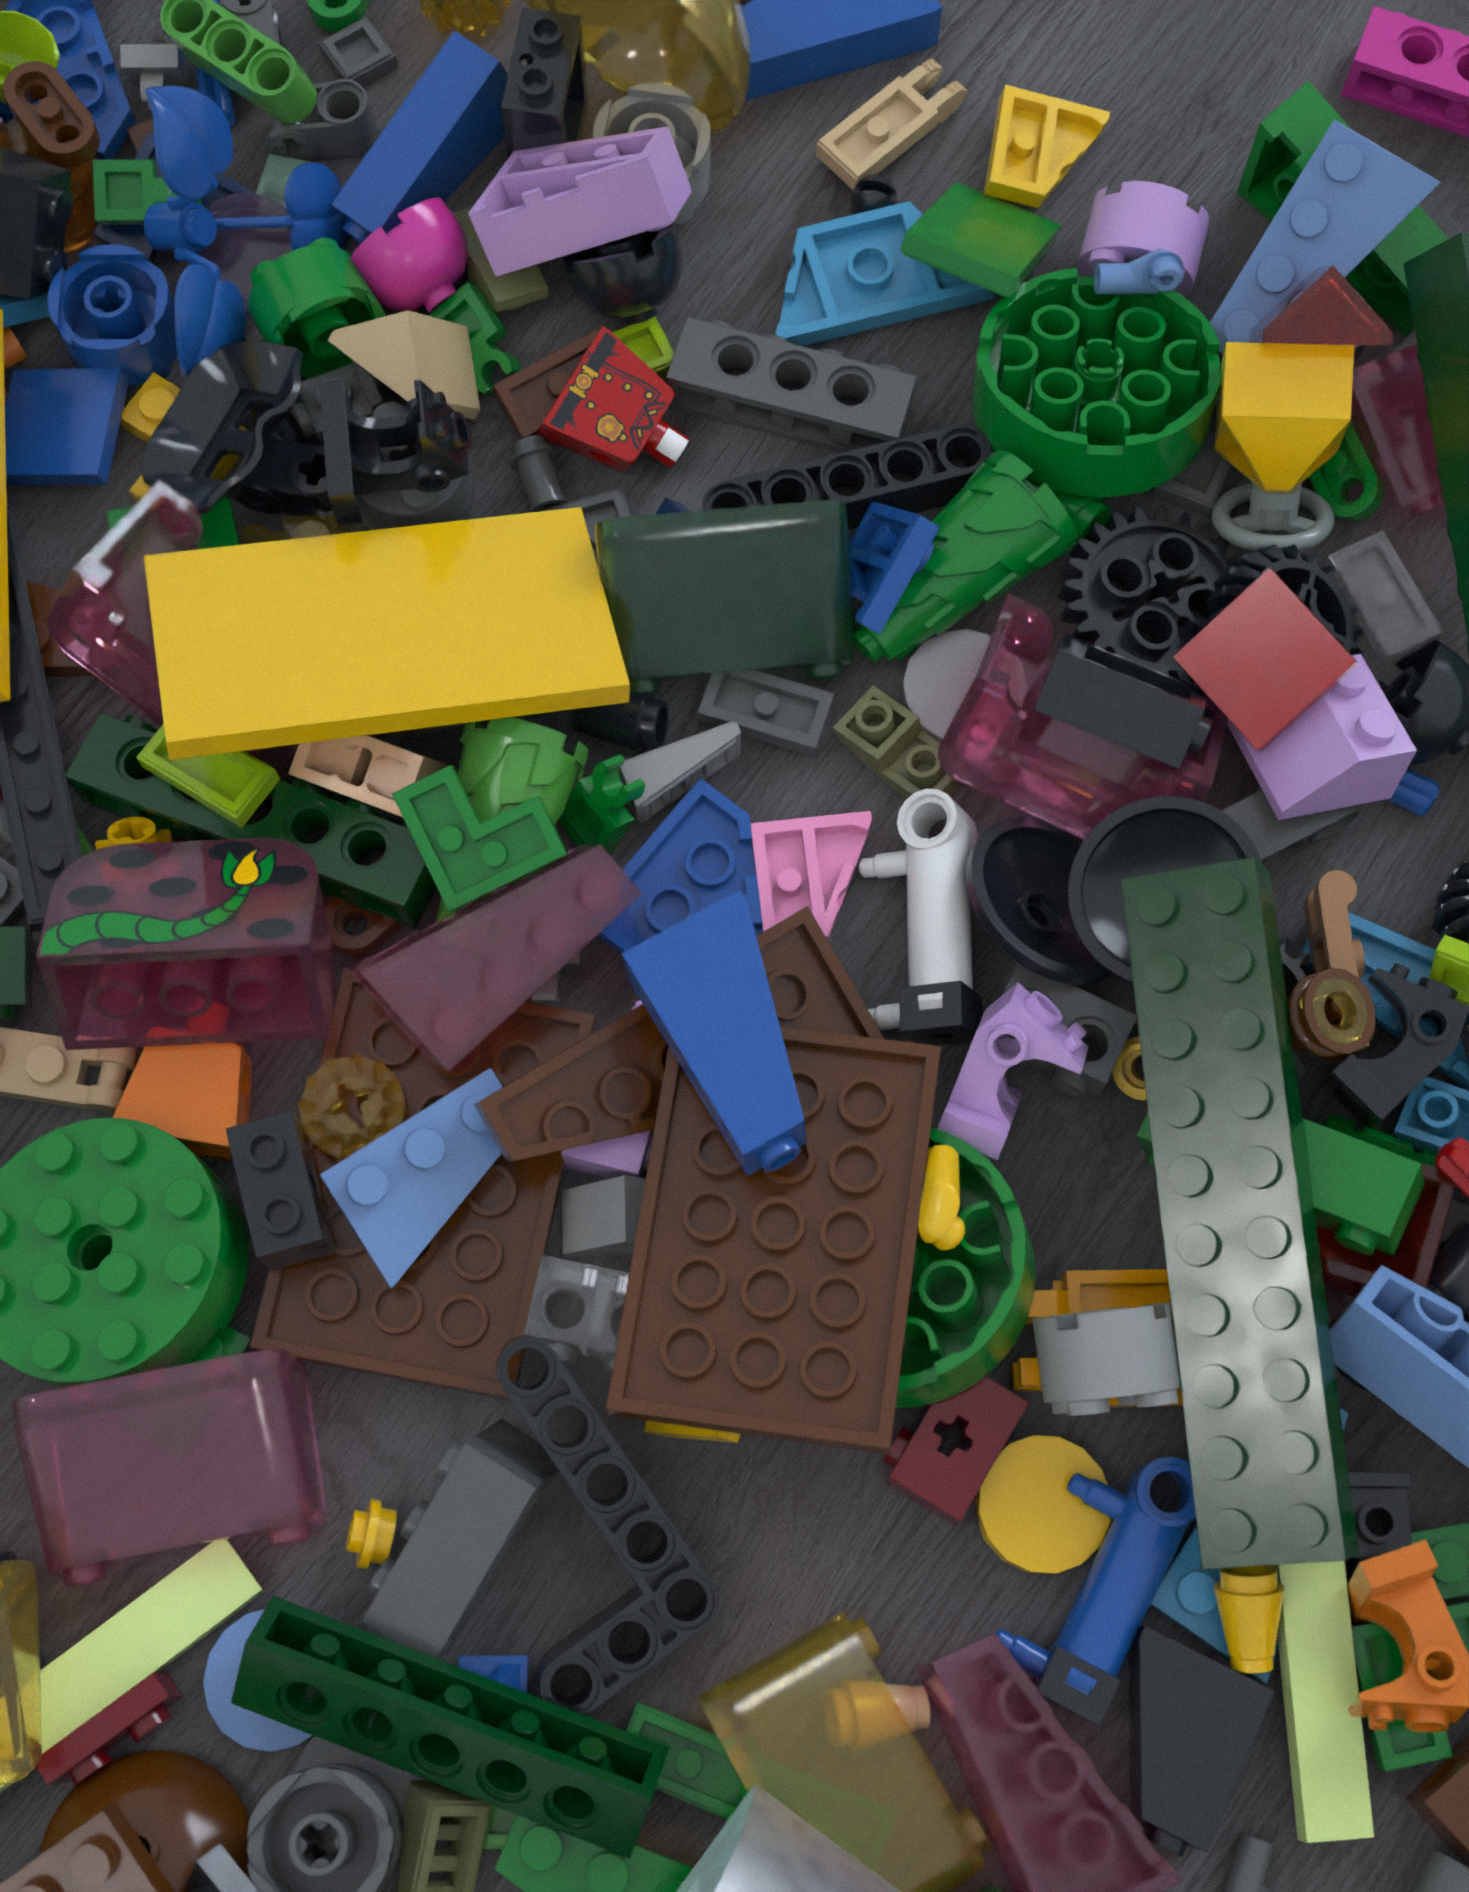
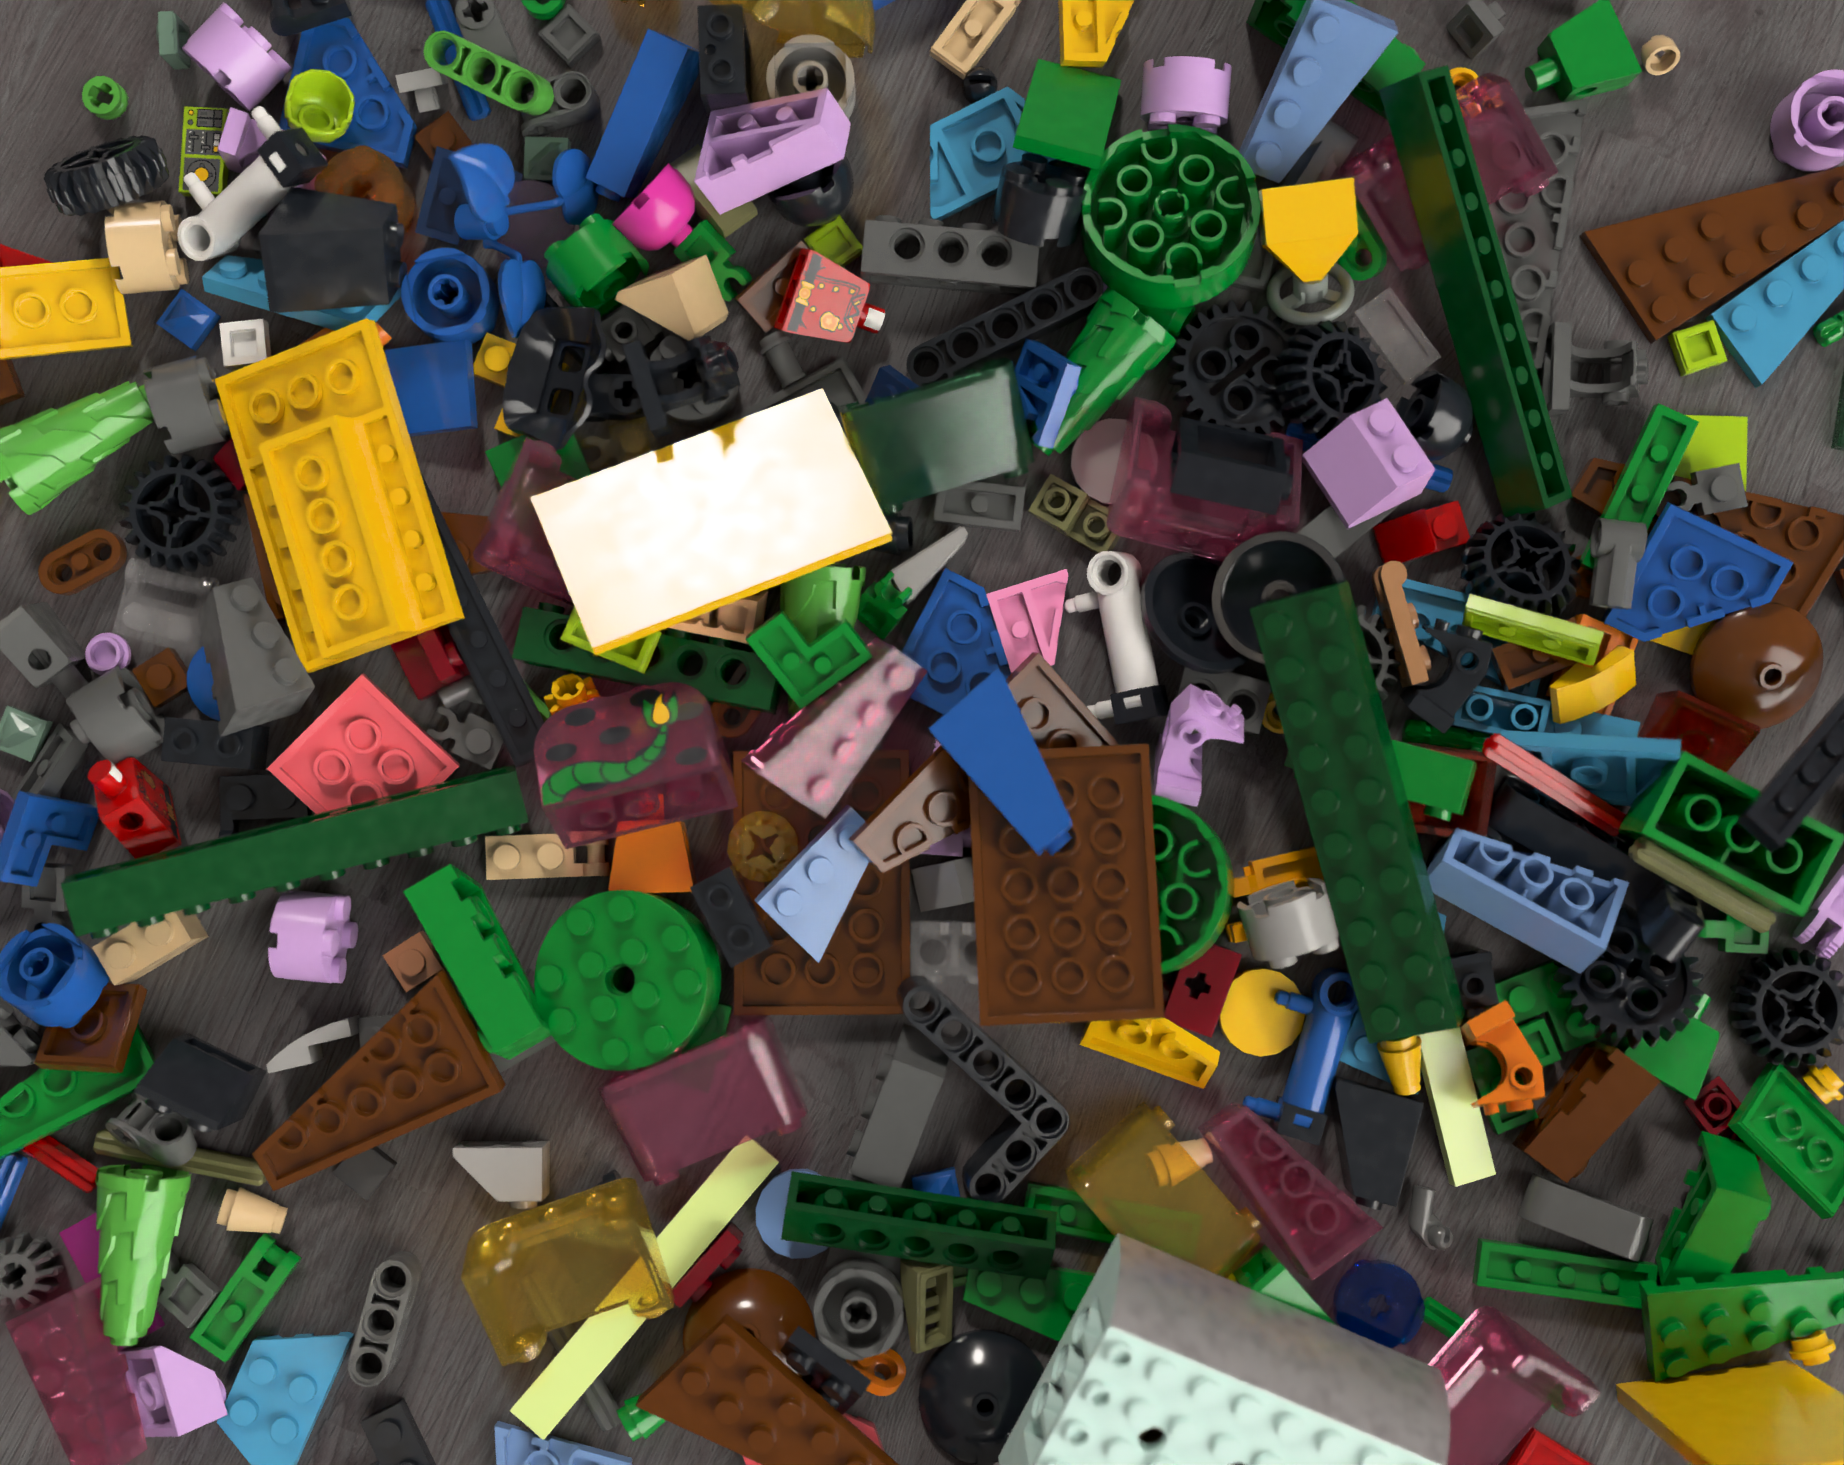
camera: 10 degrees left, 15 degrees up
(55, 118) = (368, 157): reddish brown plate -> none
(126, 190) = (435, 200): green plate -> none
(371, 1534) = (840, 1115): yellow plate -> none
(868, 1515) = (1154, 1046): none -> yellow wing
(923, 331) = (1039, 201): none -> black brick
(941, 1199) = (1167, 848): yellow arm -> none
(1148, 274) = (1201, 128): medium blue arm -> none
(1265, 660) = (1323, 421): red tile -> none
(1322, 312) = (1324, 156): clear red slope -> none
(1328, 1000) = (1398, 656): reddish brown piece -> none
(1387, 859) = (1421, 533): none -> red slope

